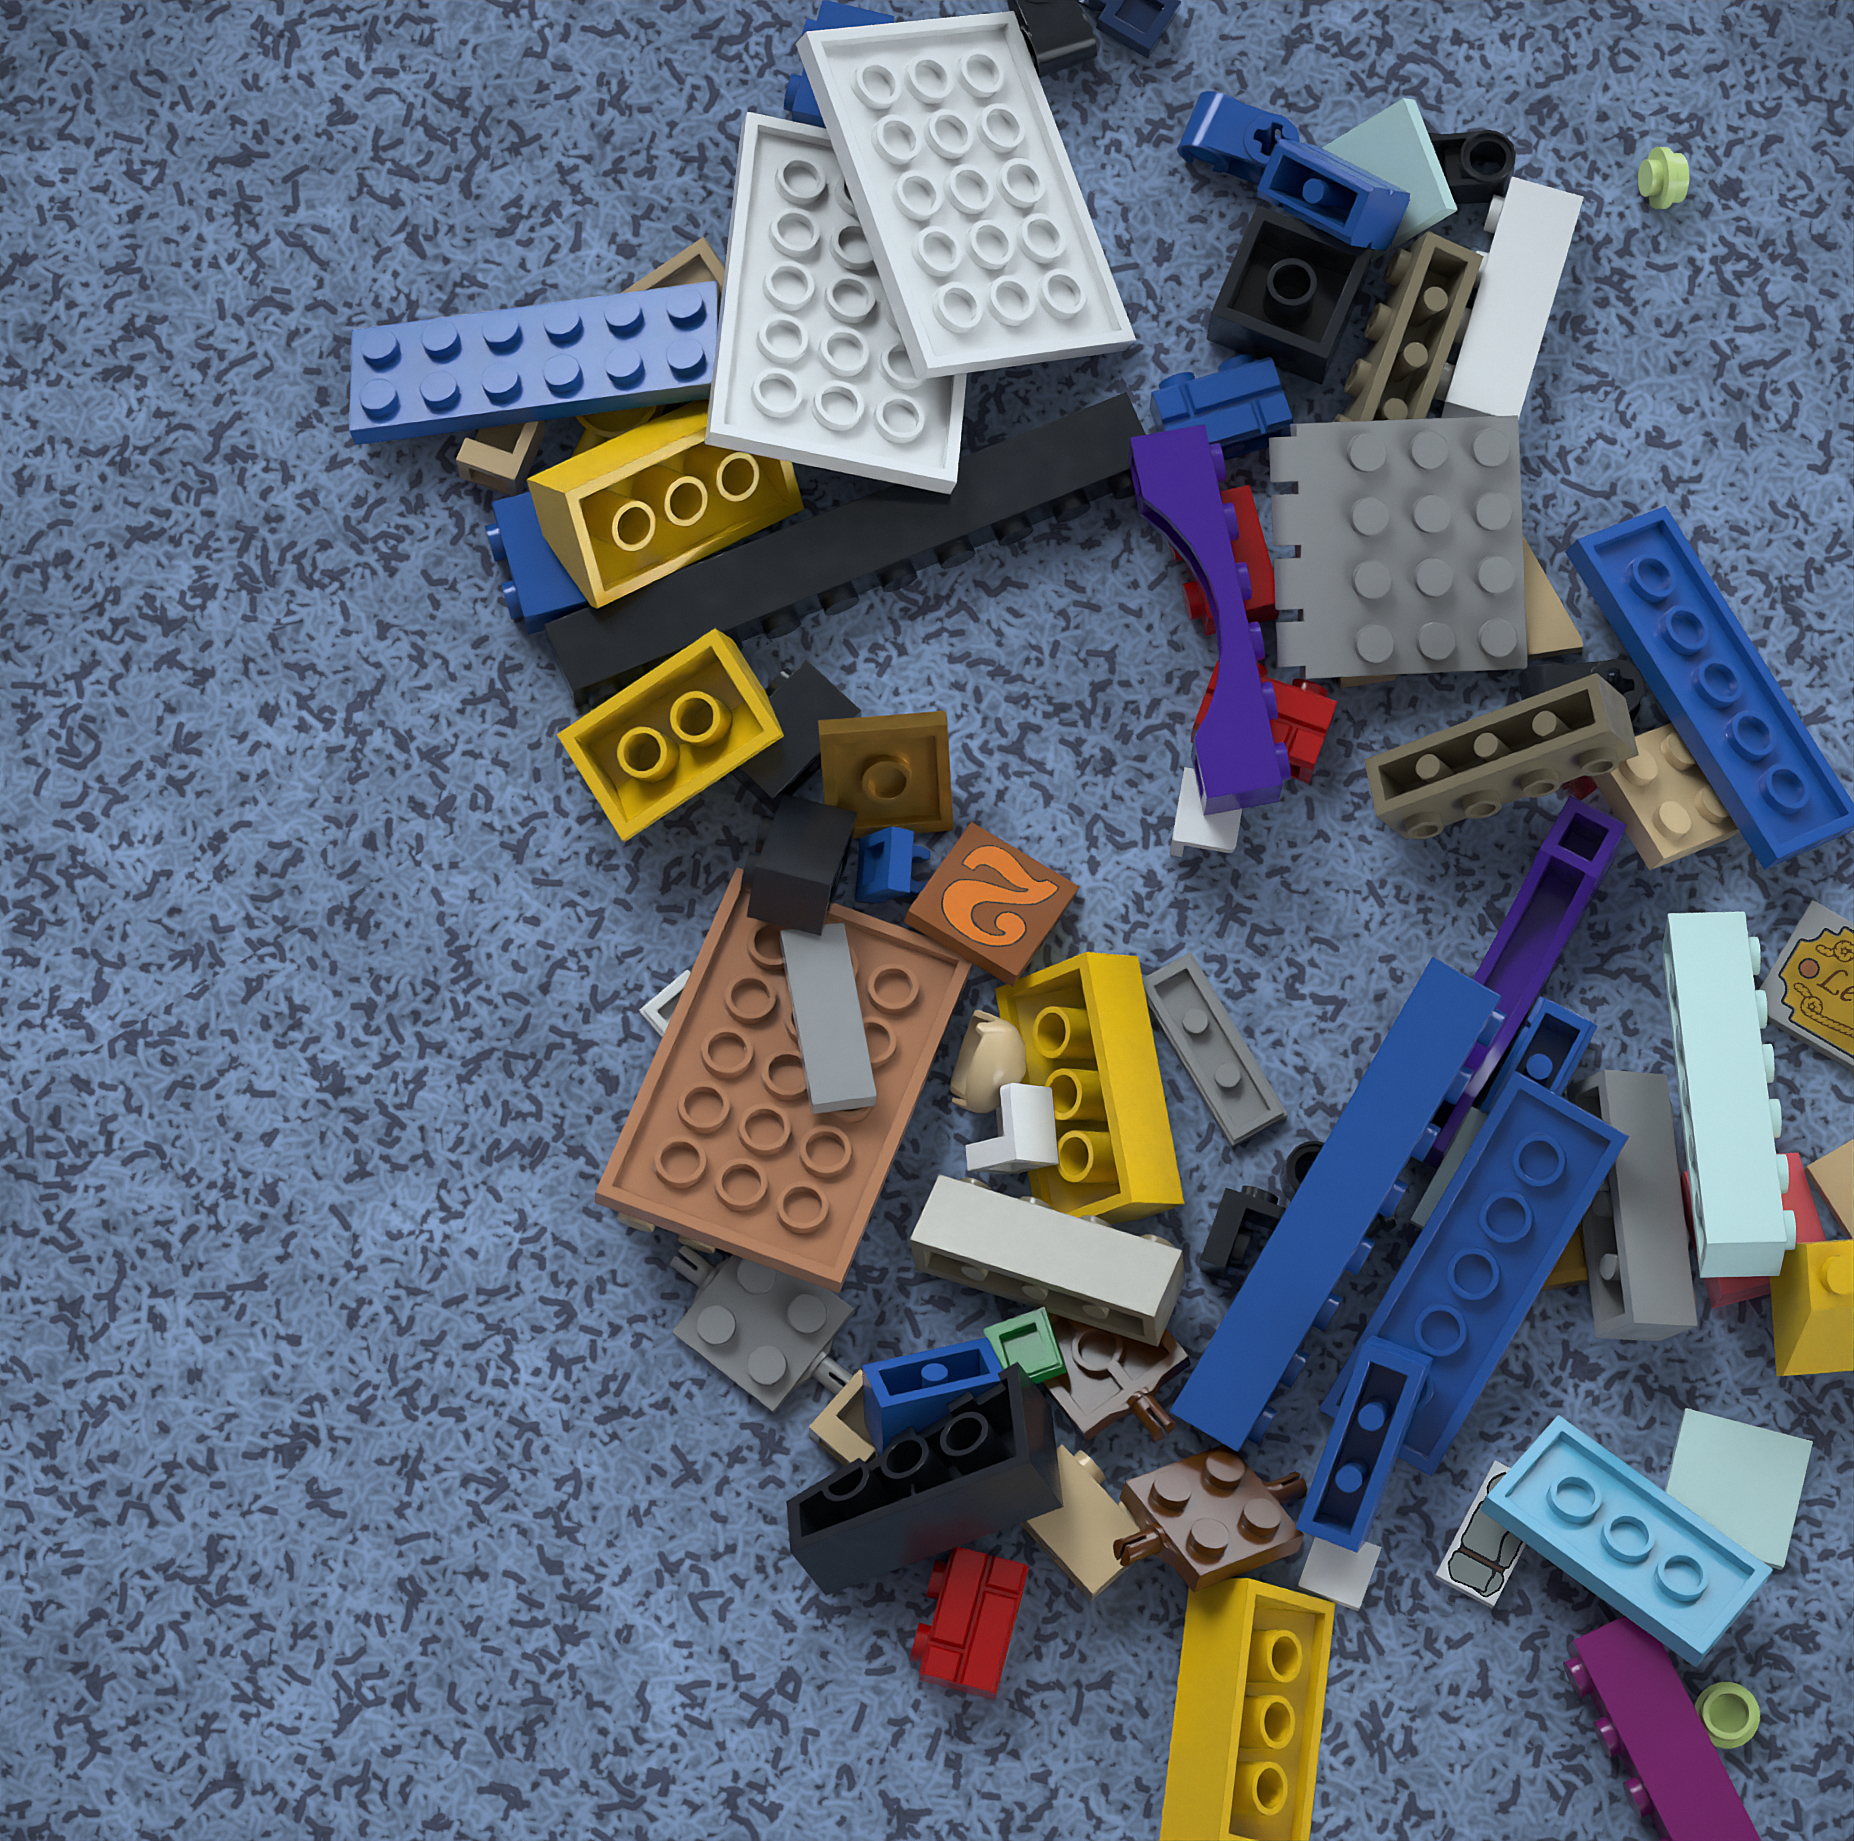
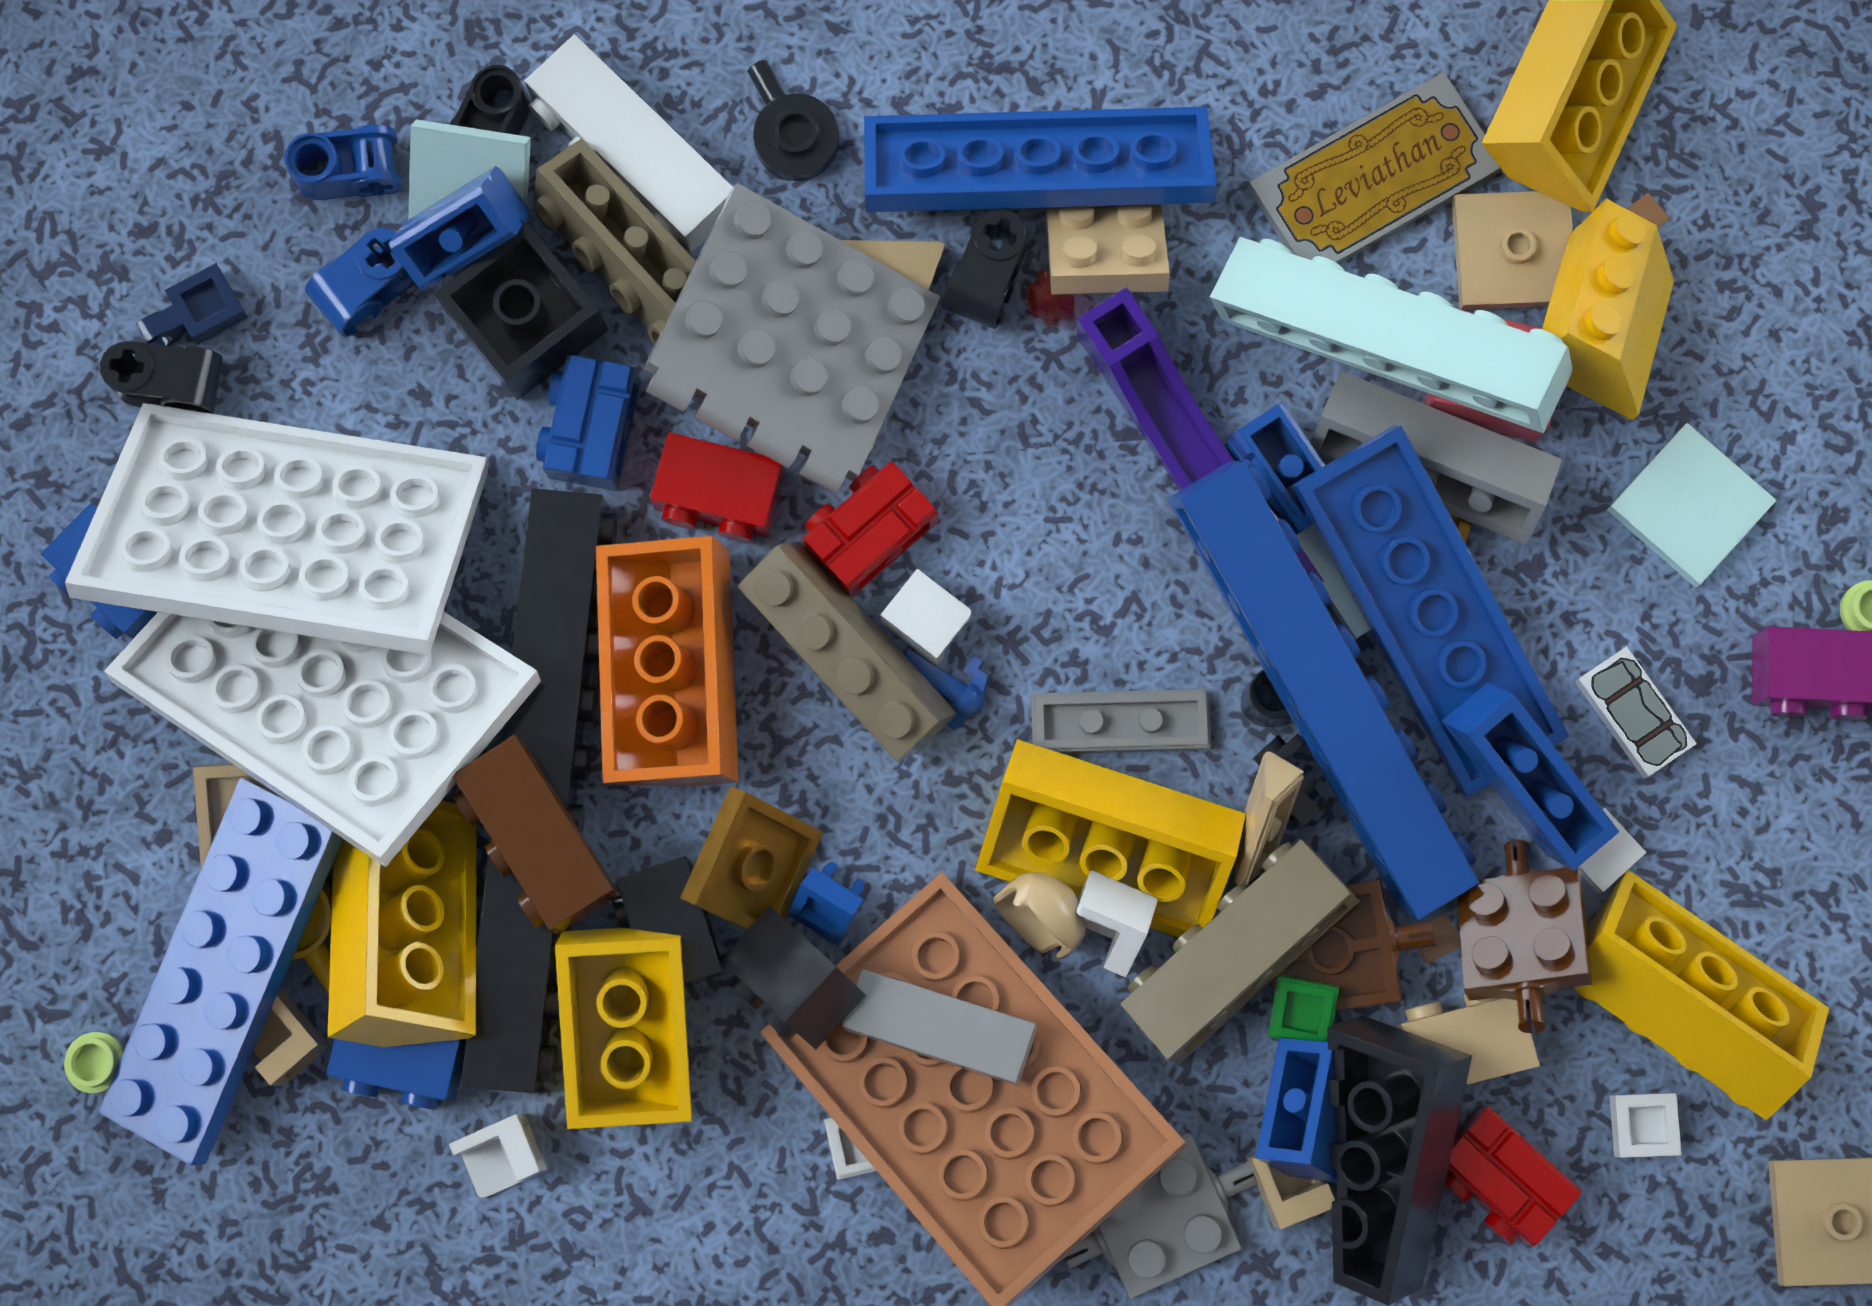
camera: 60 degrees left, 5 degrees up
(393, 300) = (93, 1061): none -> yellowish green plate
(501, 697) = (500, 1155): none -> white panel
(803, 562) = (532, 836): none -> reddish brown brick
(991, 904) = (906, 835): dark orange tile -> none
(1032, 601) = (666, 663): none -> orange slope
(1093, 1735) = (1645, 1125): none -> white plate
(1135, 758) = (847, 650): none -> dark tan brick
(1152, 895) = (966, 699): none -> blue piece
(1165, 1451) = (1445, 937): none -> medium nougat window
(1180, 498) = (654, 491): dark purple arch -> none
(1194, 1215) = (1266, 814): none -> tan slope
(1348, 73) = (349, 162): none -> blue piece
(1501, 758) = (1018, 354): dark tan brick -> none
(1613, 450) = (793, 132): none -> black piece
(1626, 1540) = (1710, 610): medium azure plate -> none

